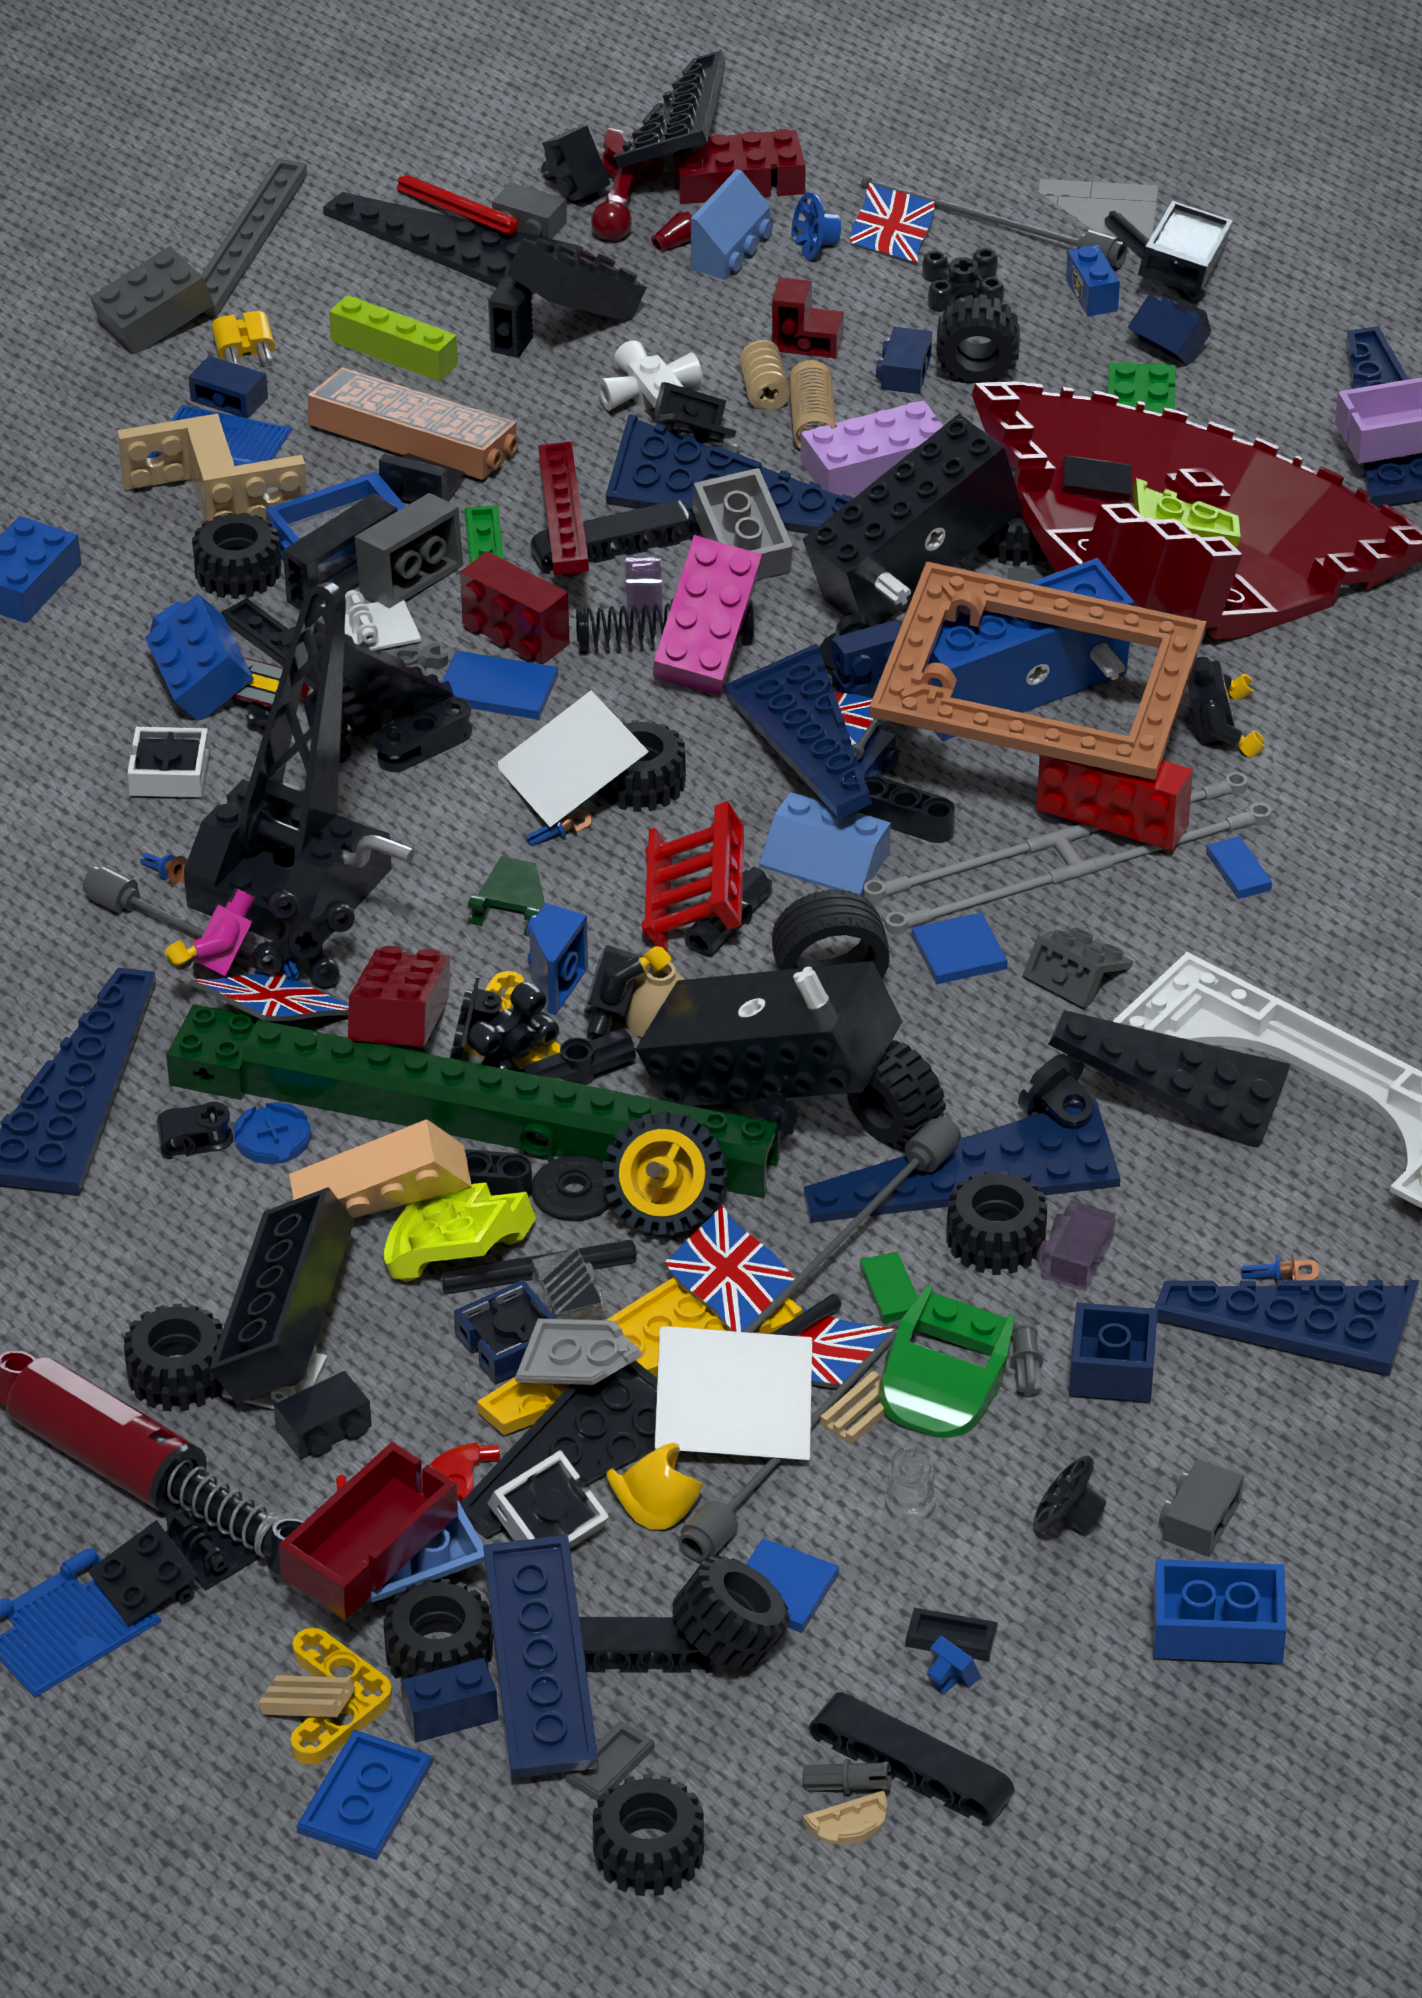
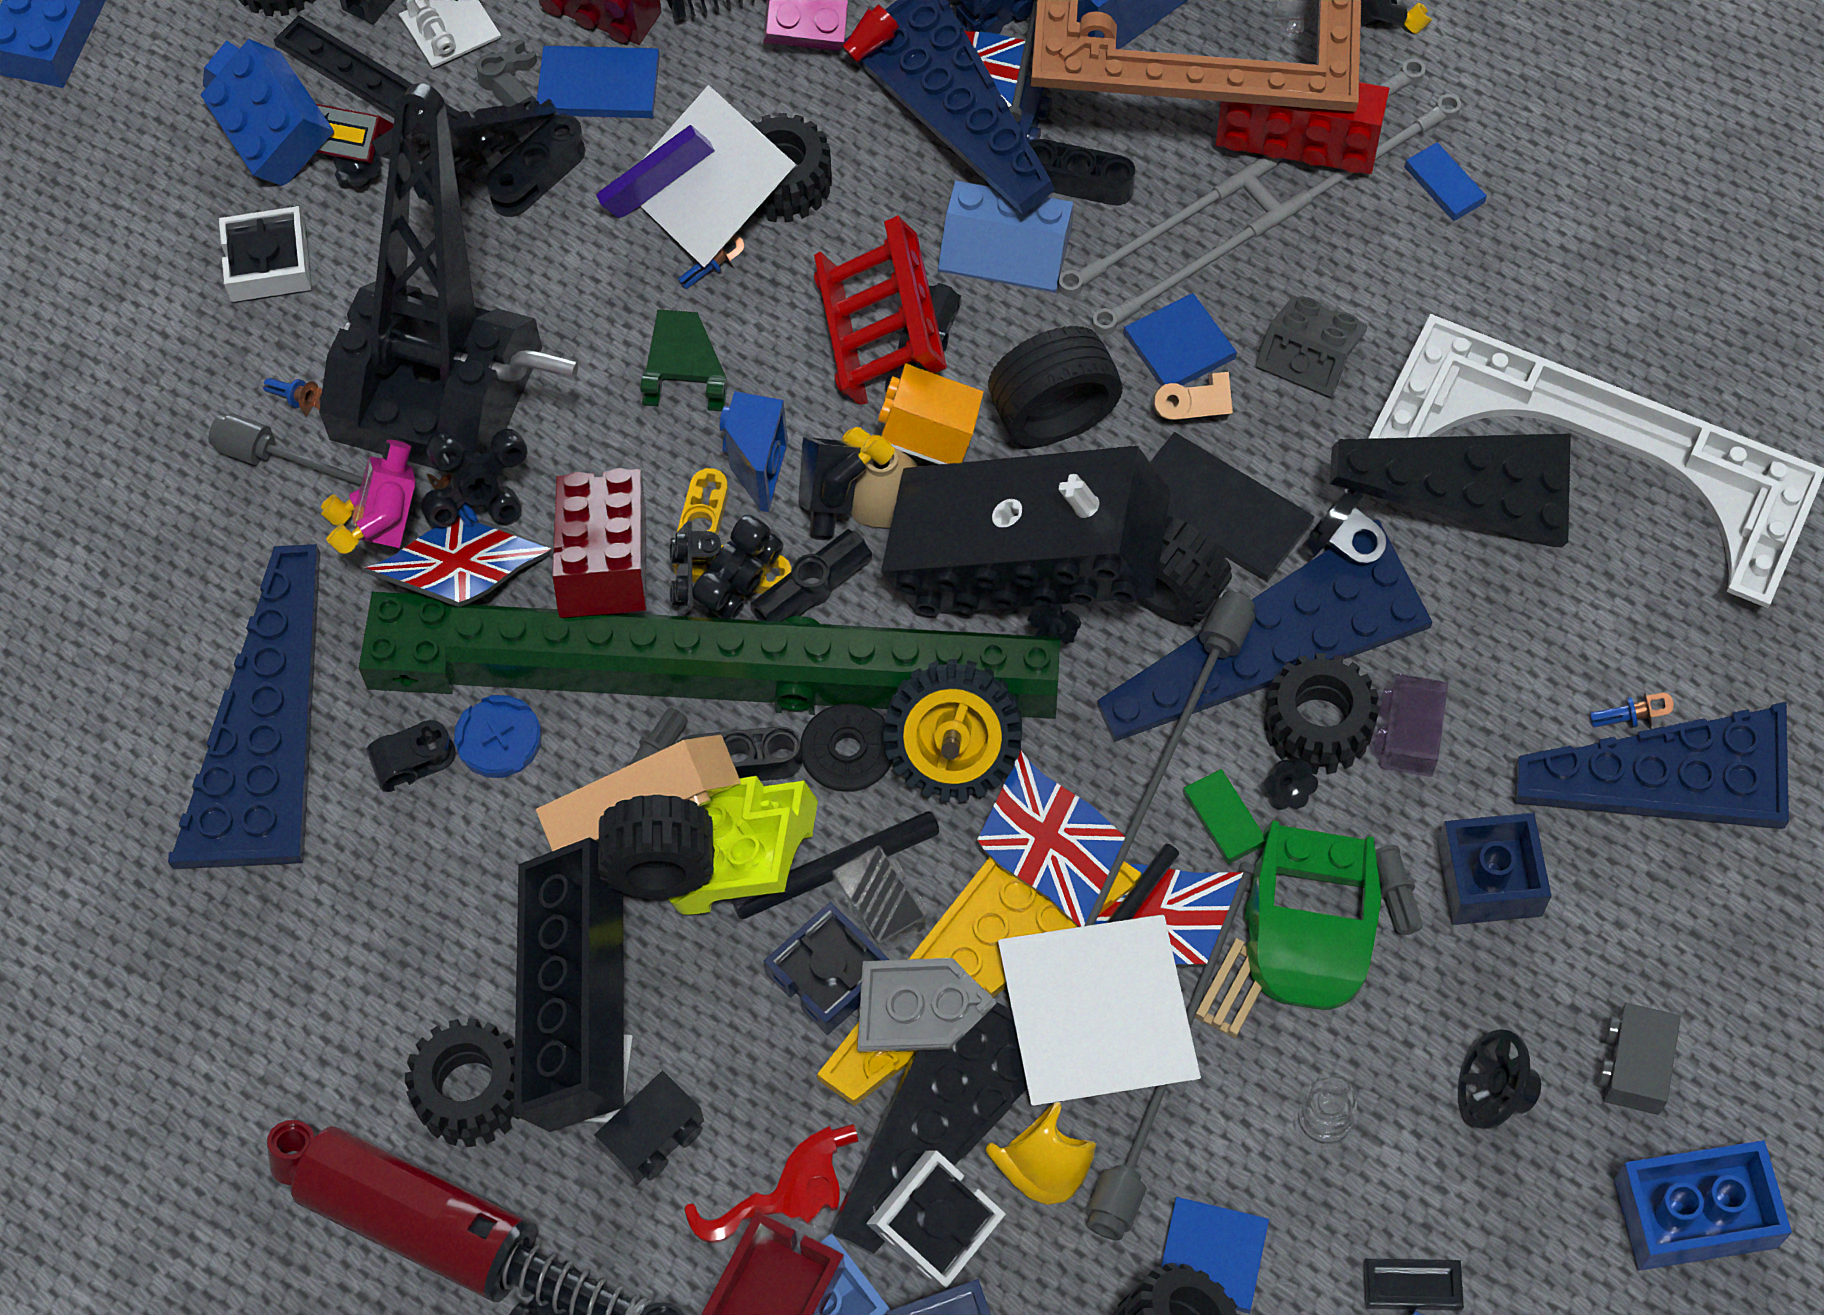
camera: 10 degrees left, 20 degrees up
(374, 1223) = (655, 847): none -> black tyre
(526, 748) = (655, 172): none -> dark purple tile
(713, 949) = (929, 415): none -> light orange piece
(748, 676) = (870, 33): none -> red cone
(956, 987) = (1177, 402): none -> light nougat leg
(965, 1272) = (1291, 784): none -> black plant
(971, 1076) = (1232, 509): none -> black tile

